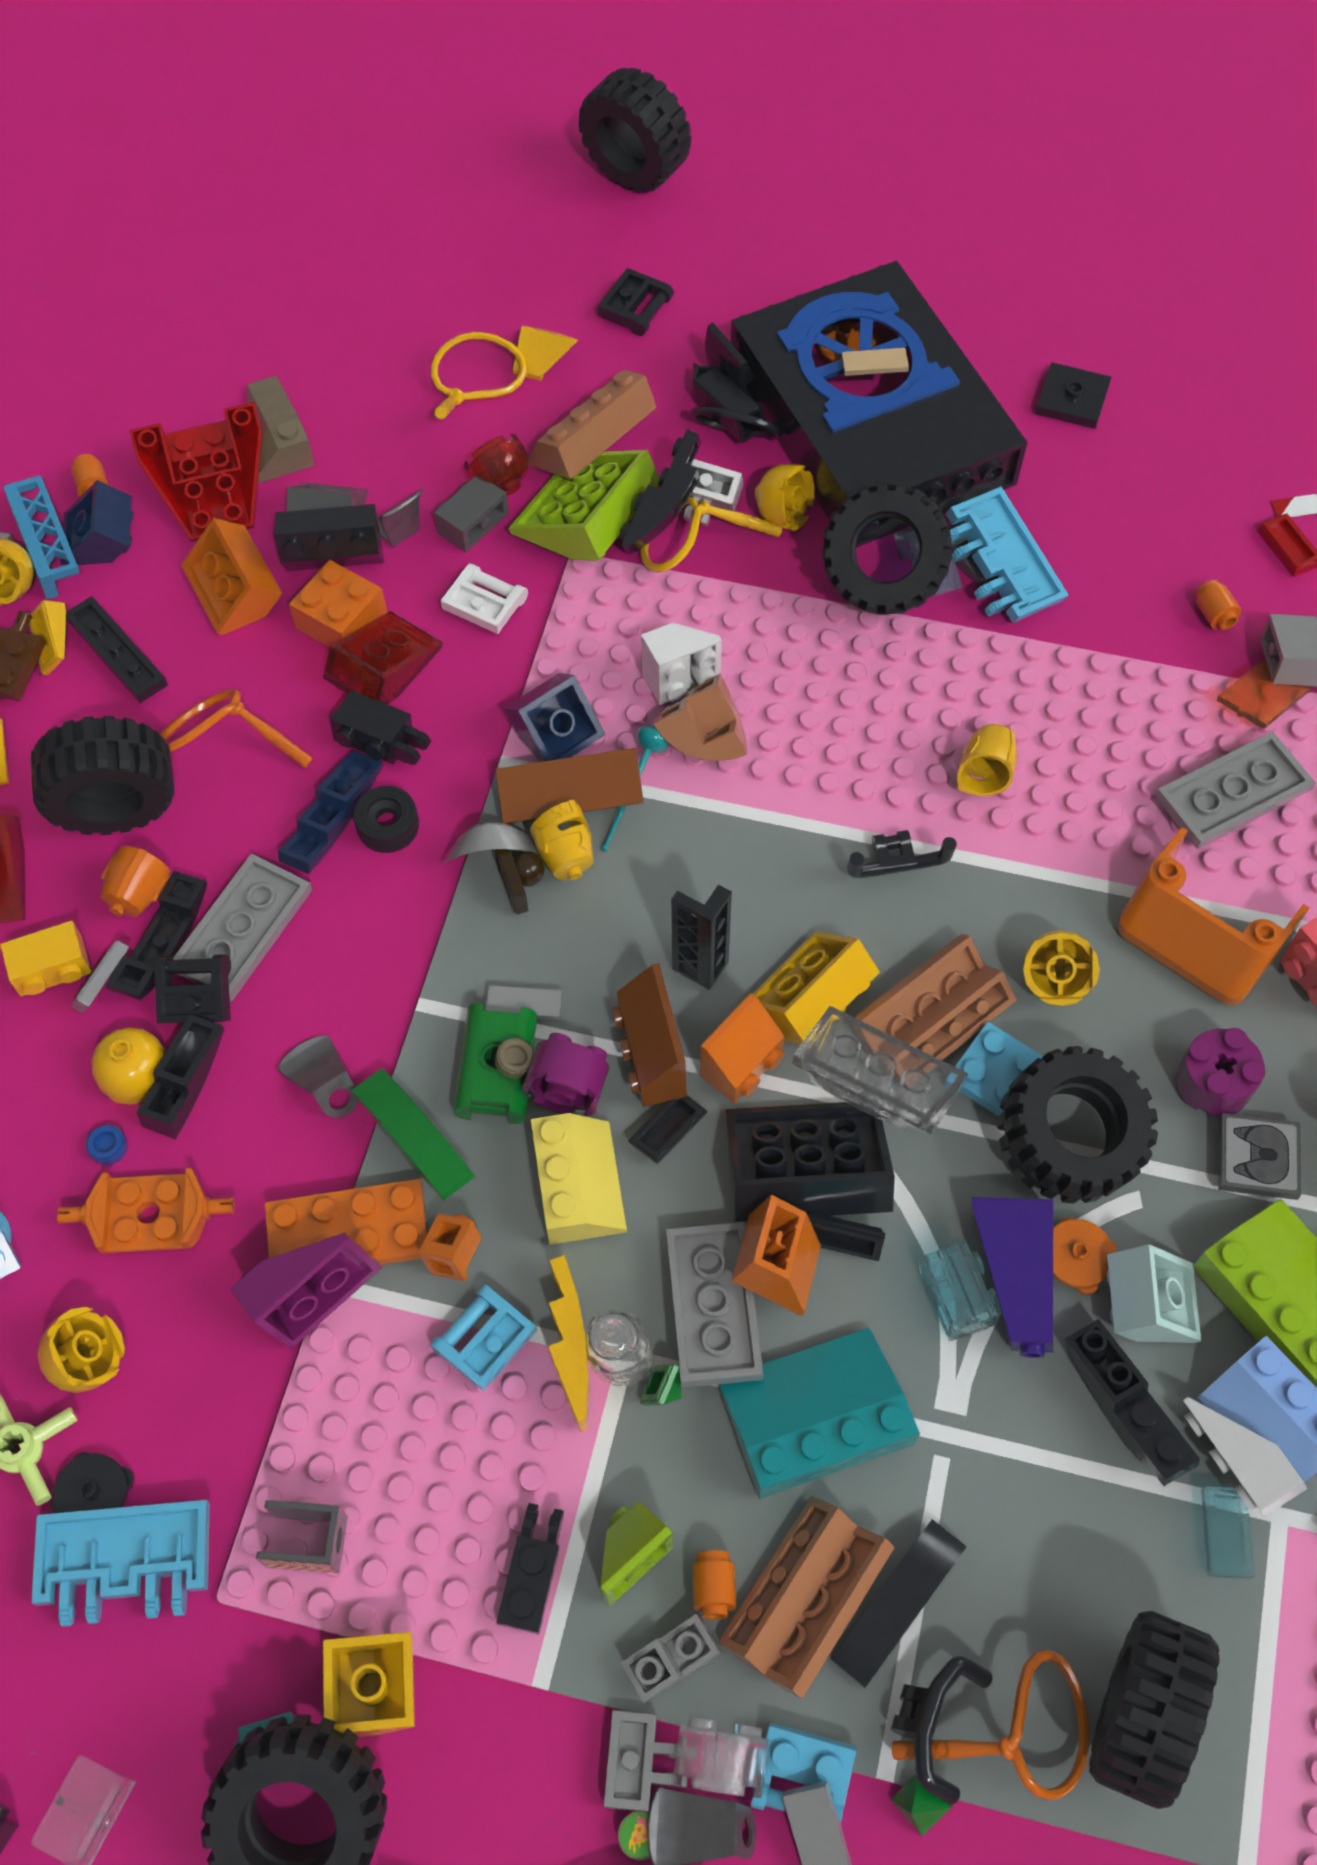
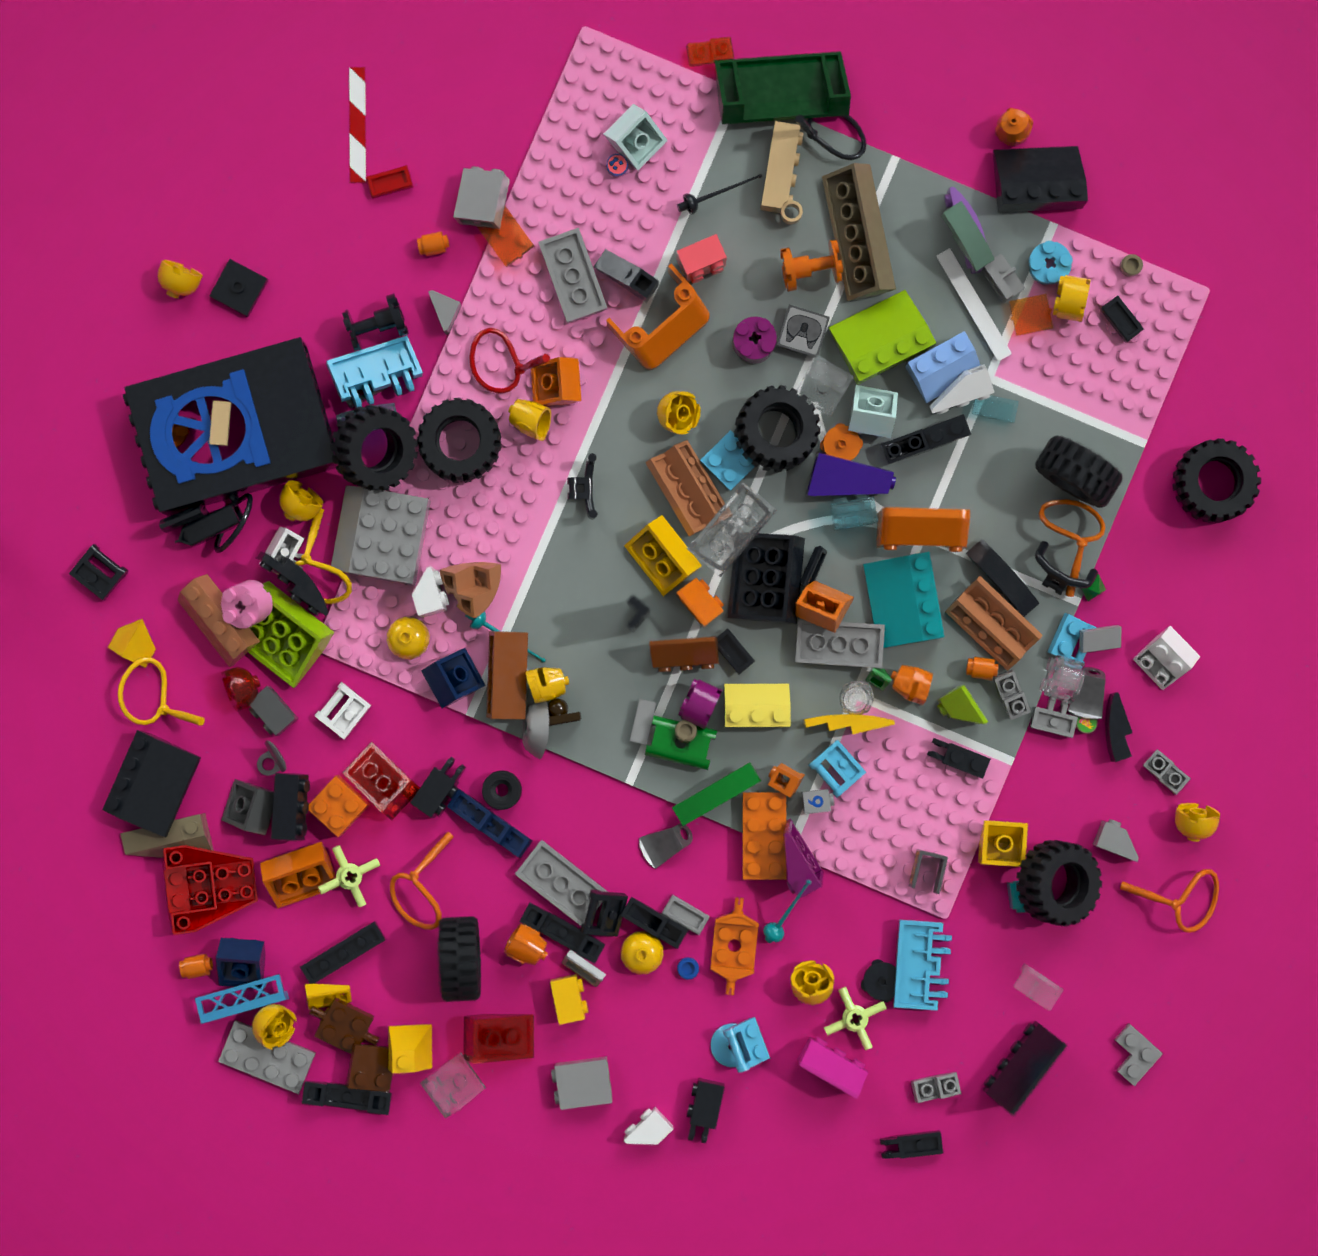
camera: 80 degrees left, 25 degrees up
(176, 1274) = (774, 931): none -> teal sword
(200, 1127) = (685, 914): none -> light grey tile
(221, 641) = (356, 878): none -> yellowish green bar
(348, 383) = (151, 783): none -> black slope
(417, 1307) = (817, 801): none -> light grey brick
(607, 655) = (408, 638): none -> yellow cylinder
(619, 437) = (246, 604): none -> bright pink brick
(661, 1447) = (912, 683): none -> orange helmet
(761, 602) = (381, 534): none -> light grey slope
(933, 633) = (450, 412): none -> black tyre
(966, 1412) = (923, 528): none -> orange windscreen
(1059, 791) = (556, 382): none -> orange slope
(1063, 320) = (178, 279): none -> yellow cylinder
(1082, 736) = (519, 369): none -> red piece
(1092, 563) = (383, 319): none -> black piece
(1120, 634) = (446, 309): none -> light grey slope
(1176, 1203) = (824, 385): none -> clear slope
(1261, 867) = (627, 275): none -> slope

